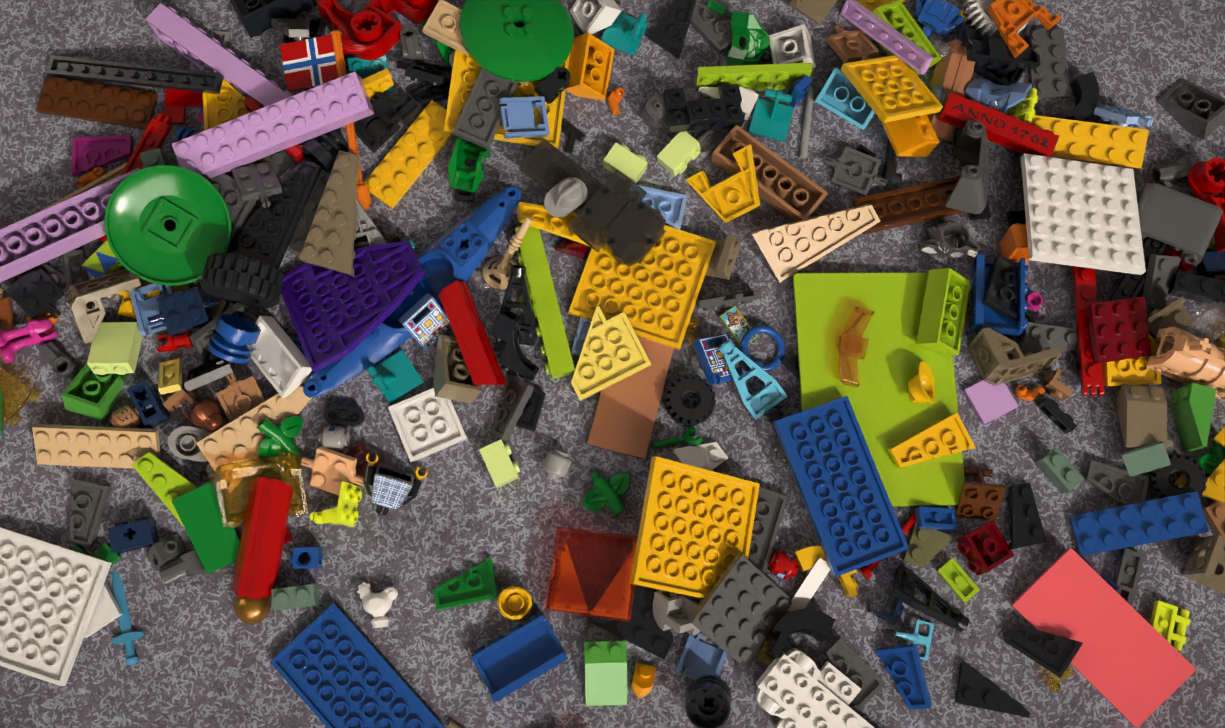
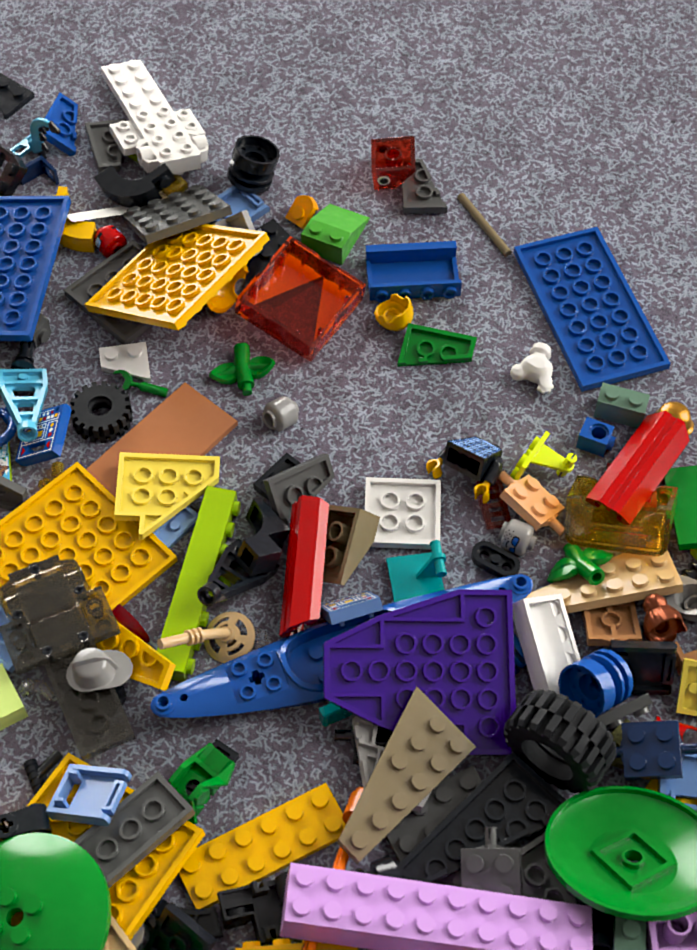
camera: 150 degrees left, 20 degrees down
(499, 463) = (342, 438): yellowish green brick -> none

